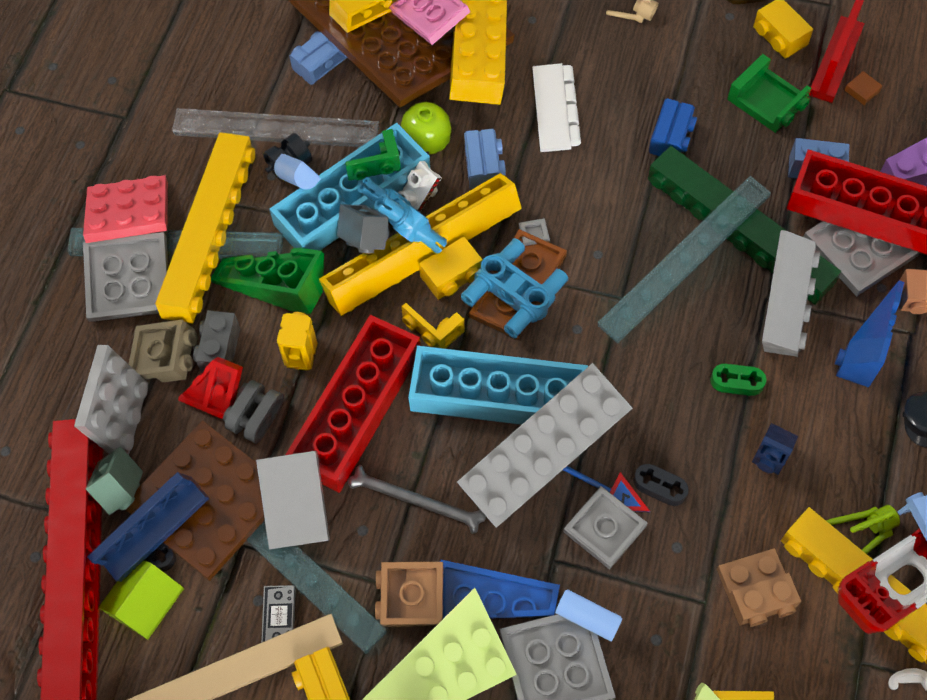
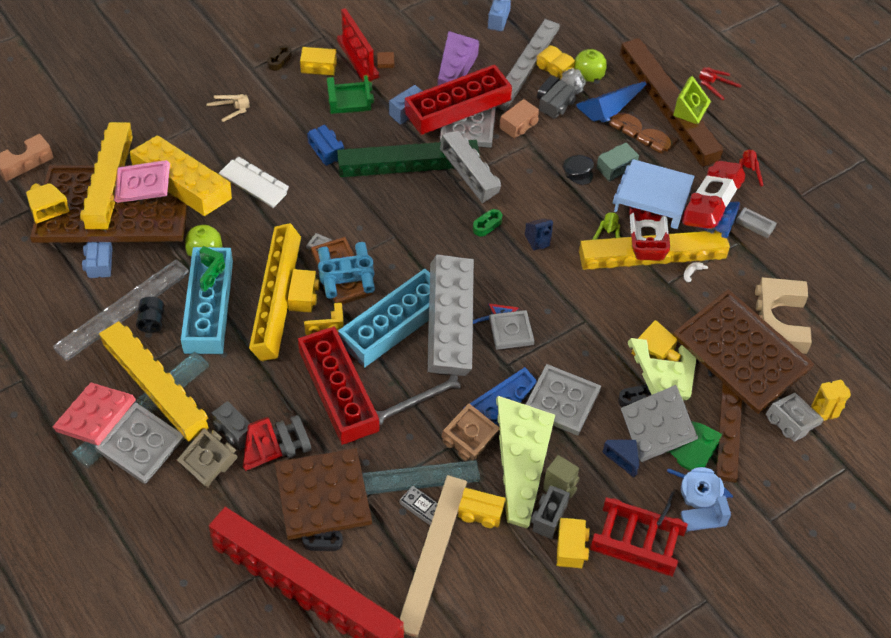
camera: 55 degrees left, 10 degrees down
(111, 401) = (224, 490): light grey plate -> none
(115, 481) = (273, 523): sand green brick -> none
(142, 599) = (348, 562): lime slope -> none
(149, 526) = (320, 523): dark blue fence -> none
(278, 279) = (224, 370): green wedge -> none
(293, 500) = (369, 446): light grey tile -> none
(295, 172) = (172, 311): light blue brick -> none
(297, 341) = (275, 384): yellow brick -> none
(363, 227) = (243, 304): dark grey brick -> none
(402, 215) = (256, 280): dark azure piece -> none
(420, 185) = (240, 269): white hips -> none
(482, 156) = (252, 231): medium blue brick -> none
(588, 615) = (553, 362): light blue brick -> none
(664, 480) = (509, 290): black beam -> none
(683, 259) = (405, 193): clear light blue tile -> none
(758, 588) = (599, 293): medium nougat plate -> none
(870, 344) = (523, 156): blue wedge -> none

